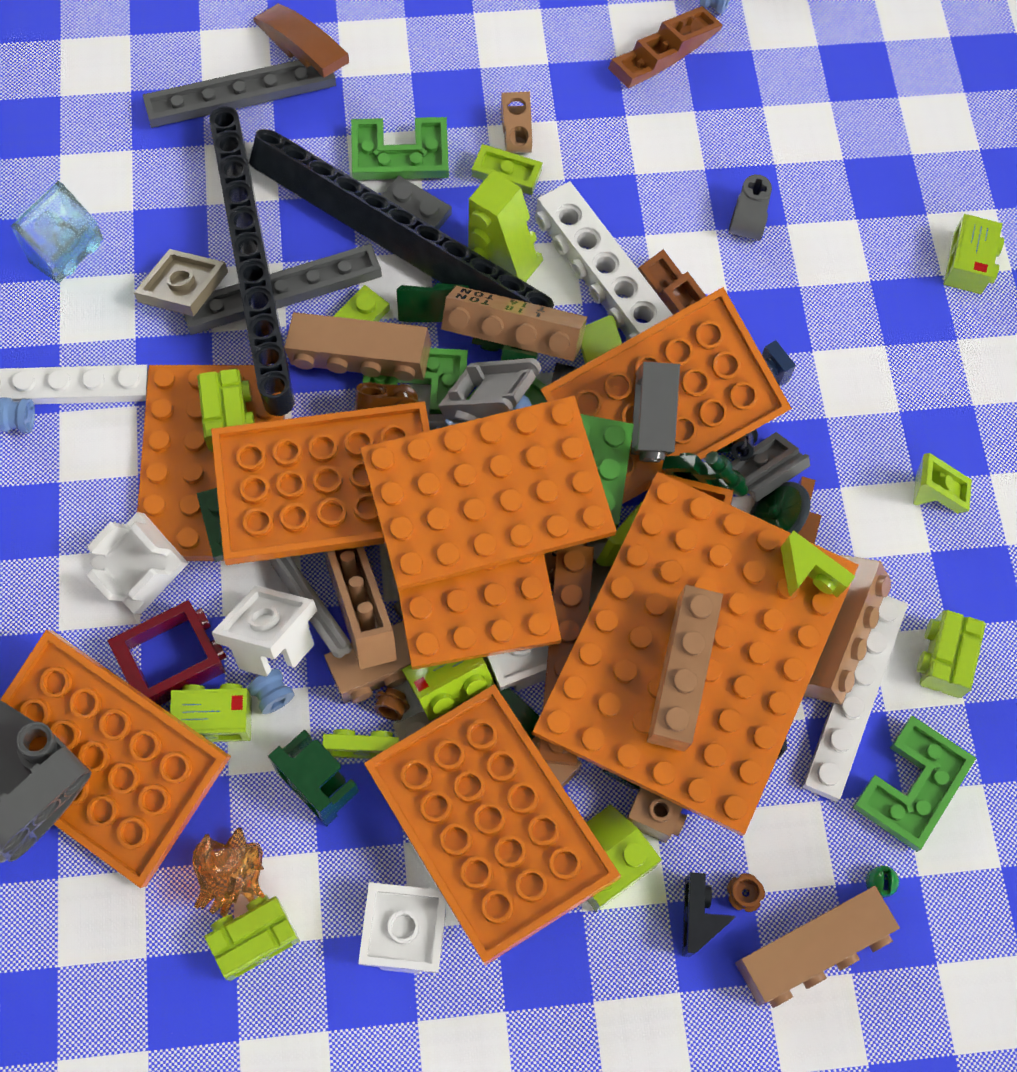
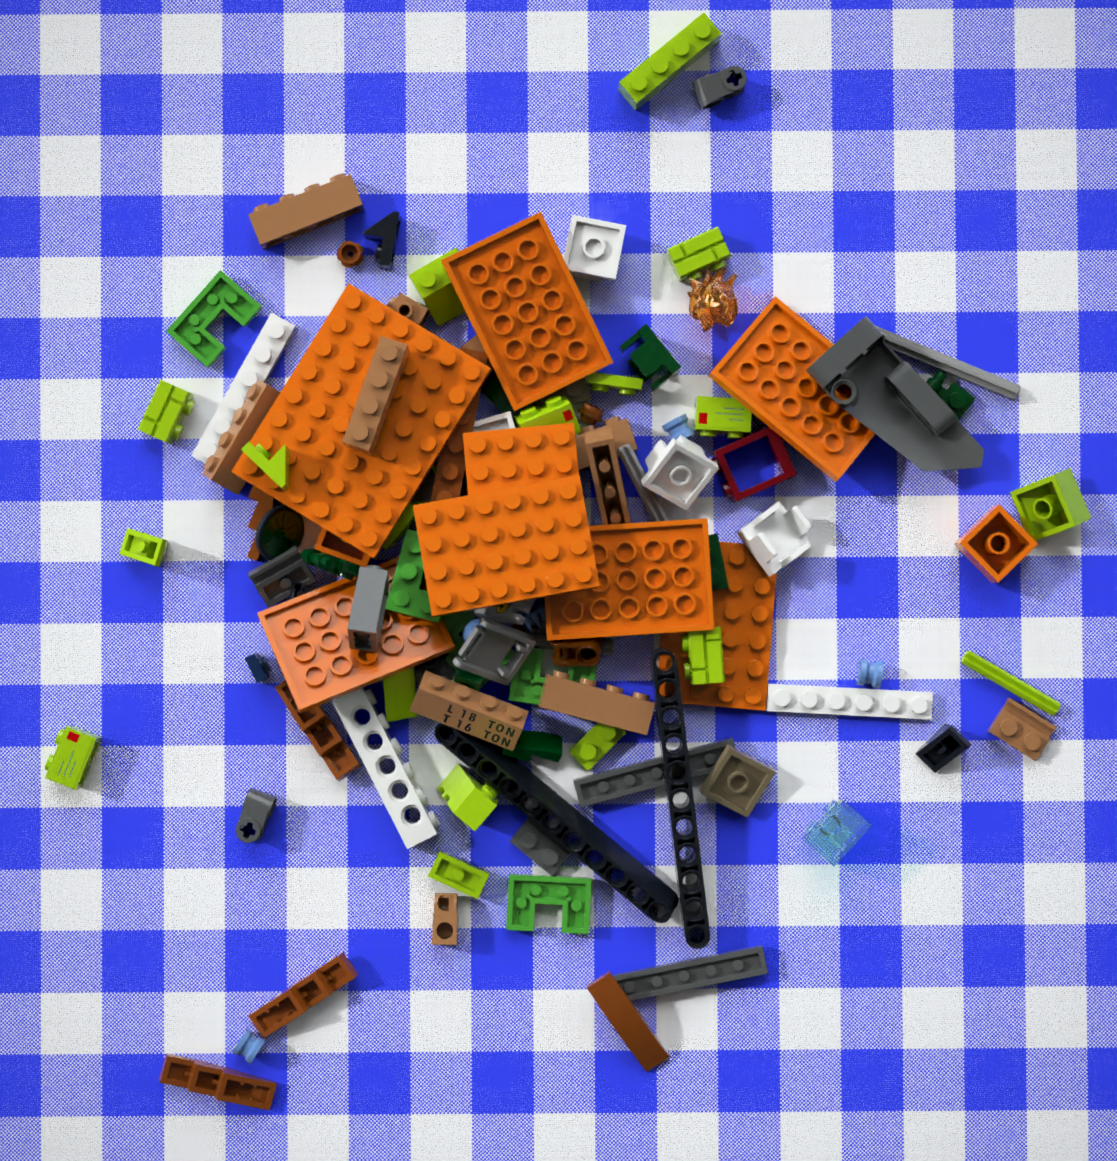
camera: 170 degrees left, 20 degrees up
(876, 878) = (256, 253): green hinge -> none

